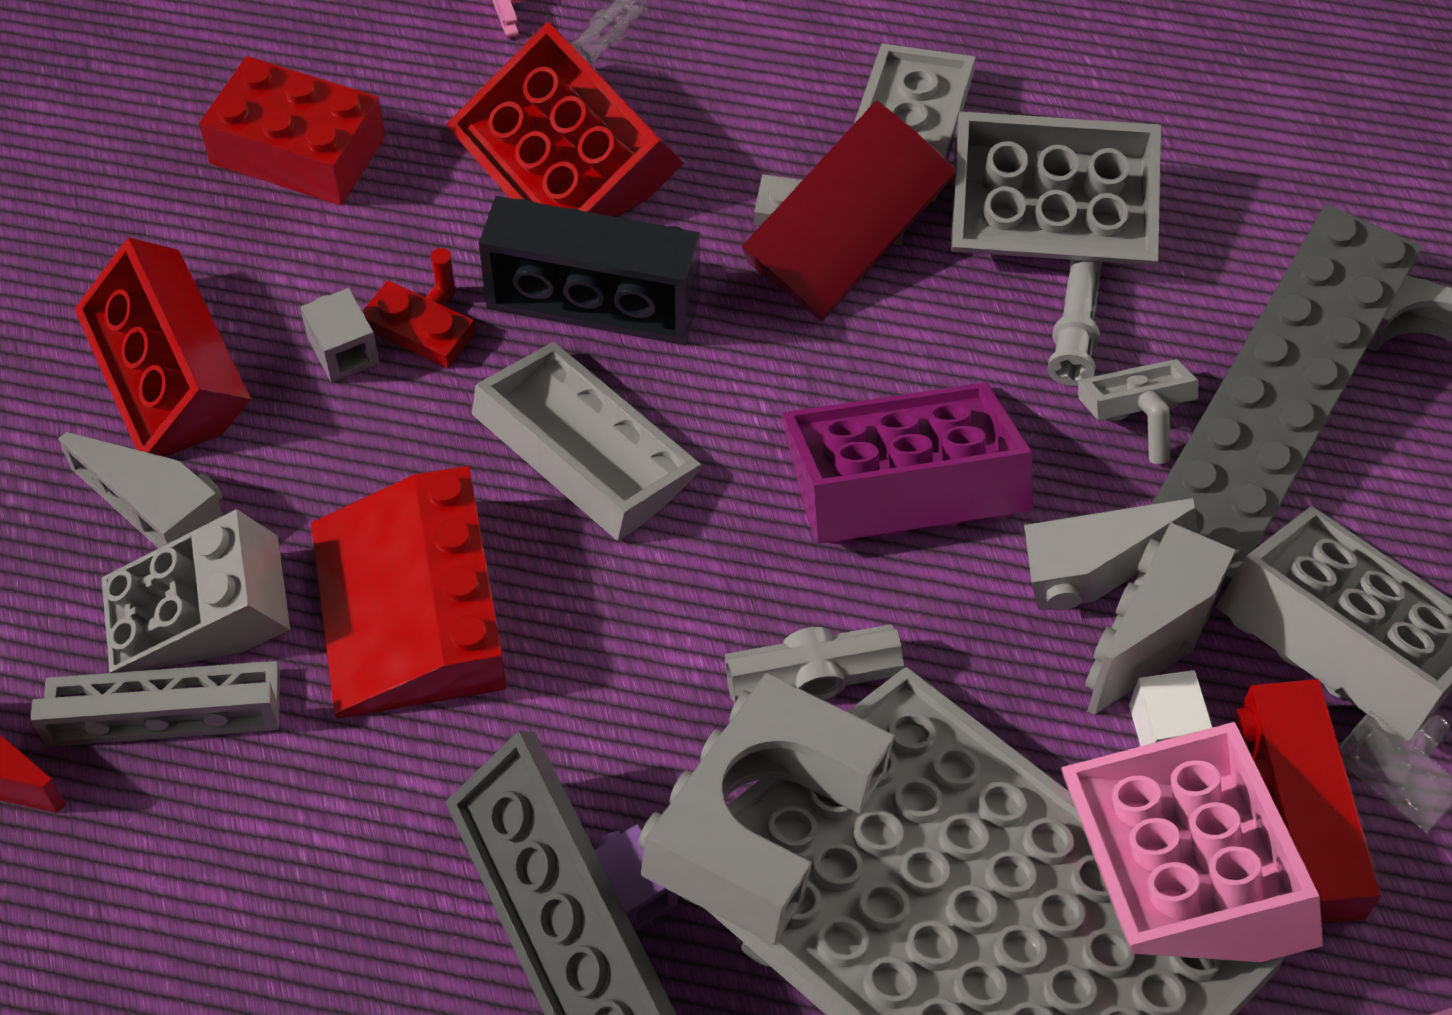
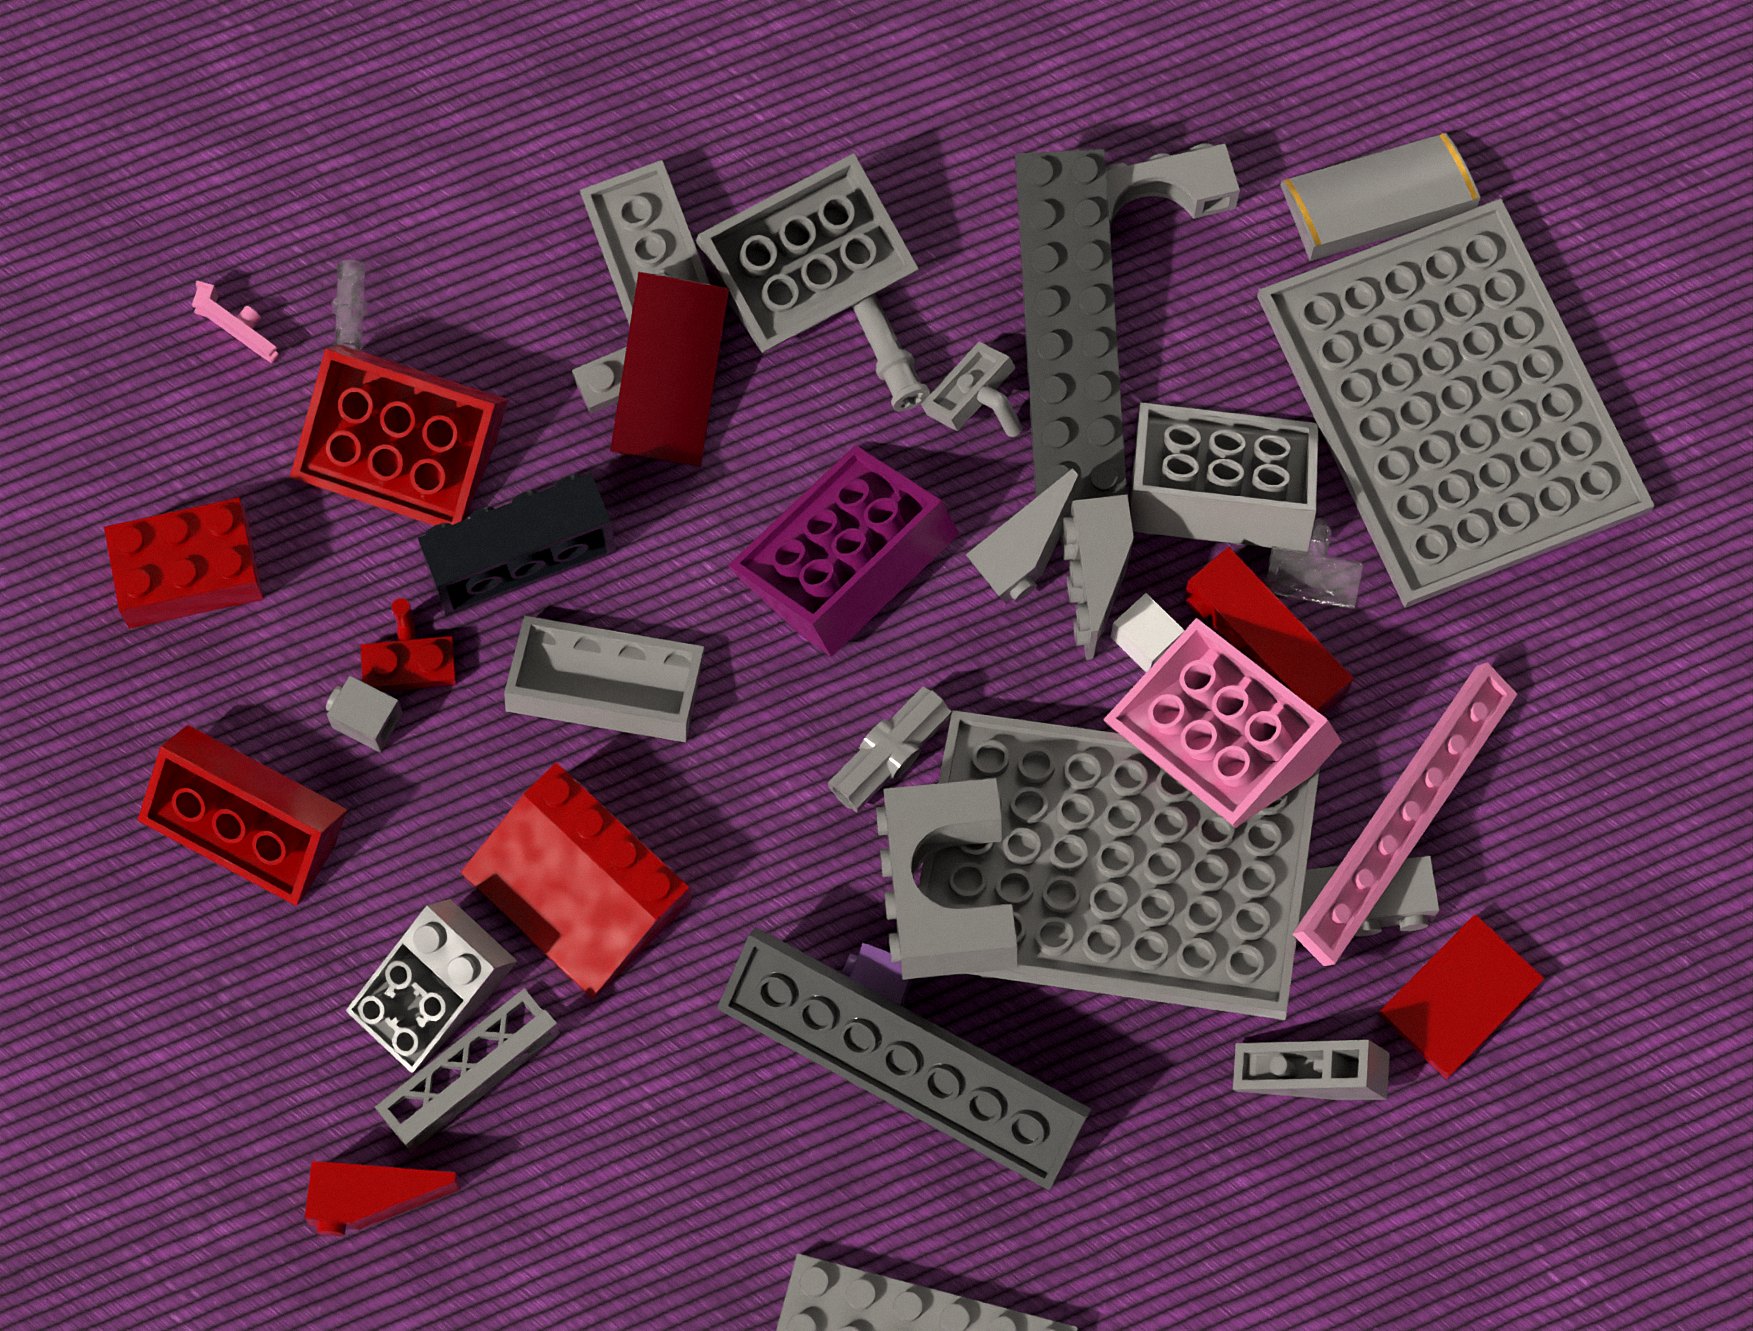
camera: 35 degrees left, 15 degrees up
(147, 489) = (334, 927): light grey slope -> none

